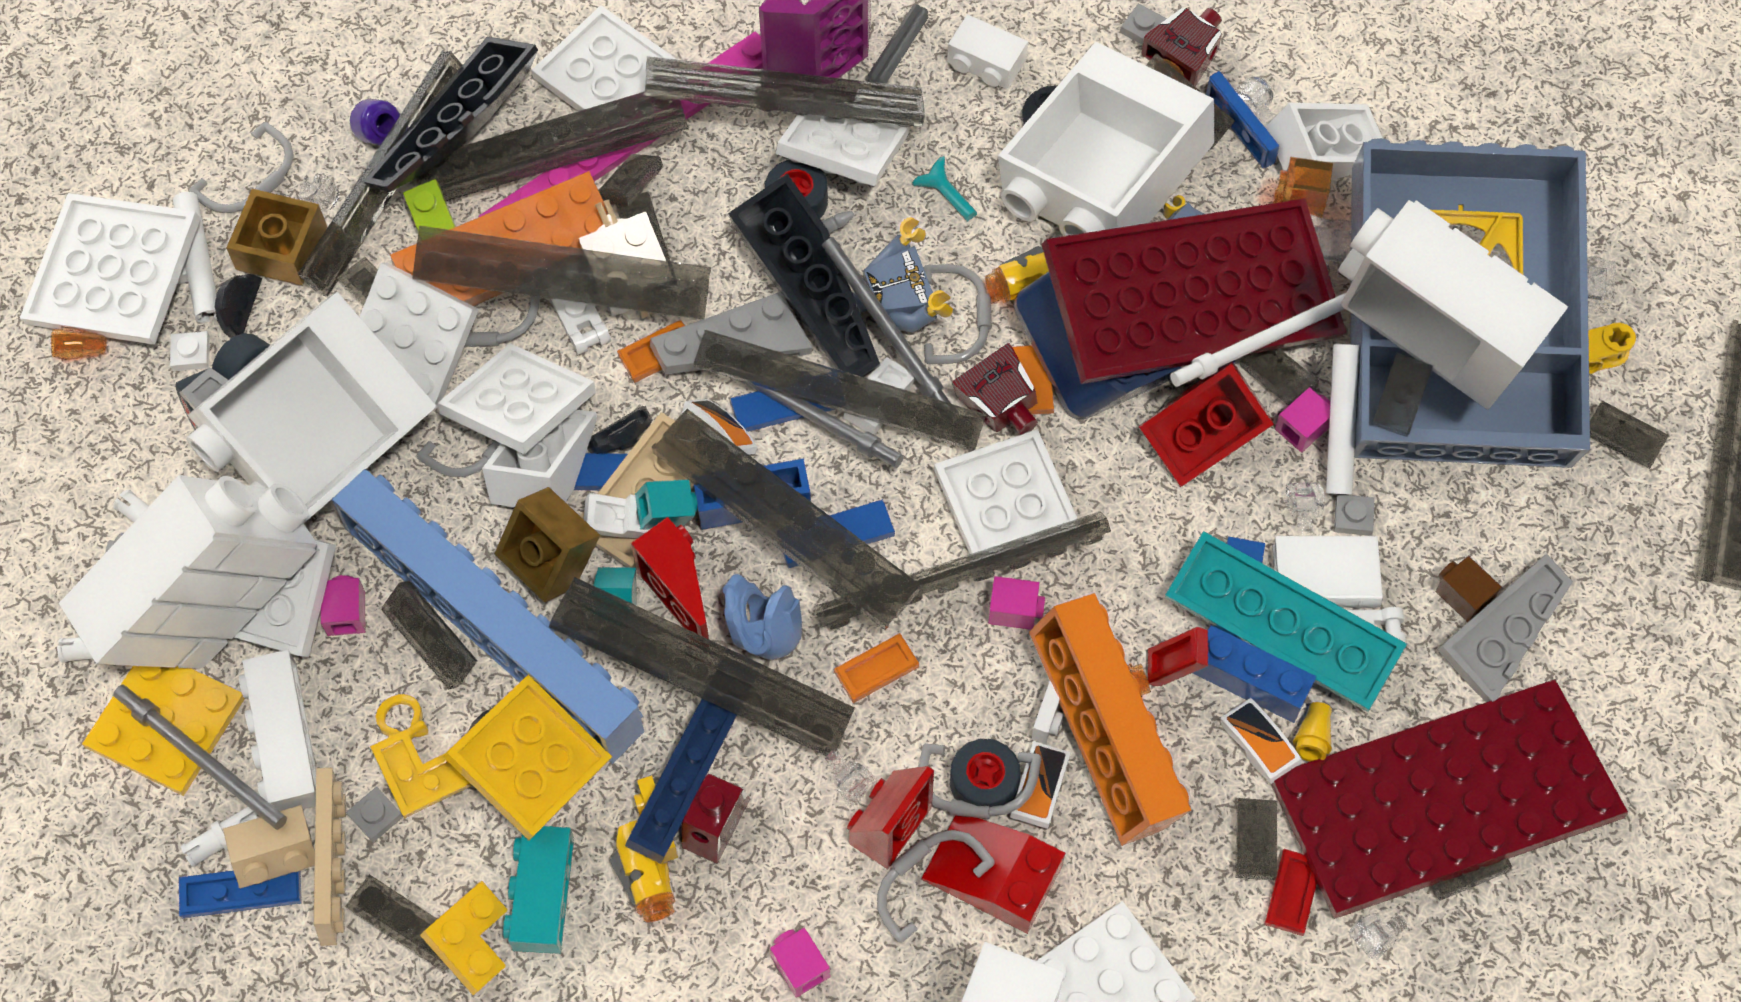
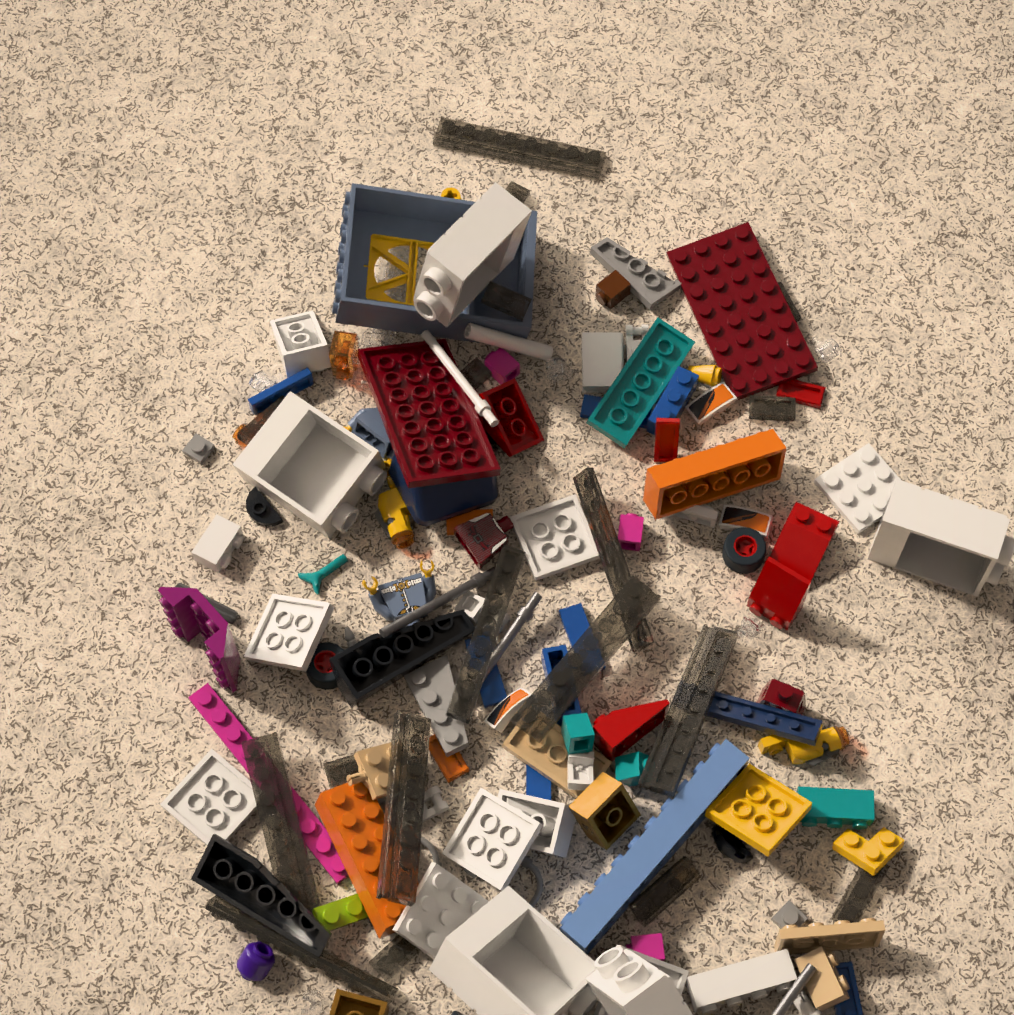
camera: 90 degrees left, 0 degrees up
(411, 781) = (768, 890): yellow plate -> none
(418, 726) = (728, 896): yellow piece -> none
(621, 433) = (511, 773): black plate -> none
(630, 179) = (312, 775): clear smoke plate -> none
(773, 623) = (651, 673): medium blue helmet -> none
(784, 92) = (253, 670): clear smoke plate -> none
(799, 961) = (867, 653): dark pink brick -> none
(876, 668) = (674, 615): orange tile -> none
(910, 859) = (837, 605): light grey piece -> none
(965, 809) = (733, 521): light grey piece -> none
(984, 320) = (421, 550): light grey piece -> none
(1186, 41) = (219, 420): dark red torso -> none
(1354, 514) = (563, 346): light grey plate -> none

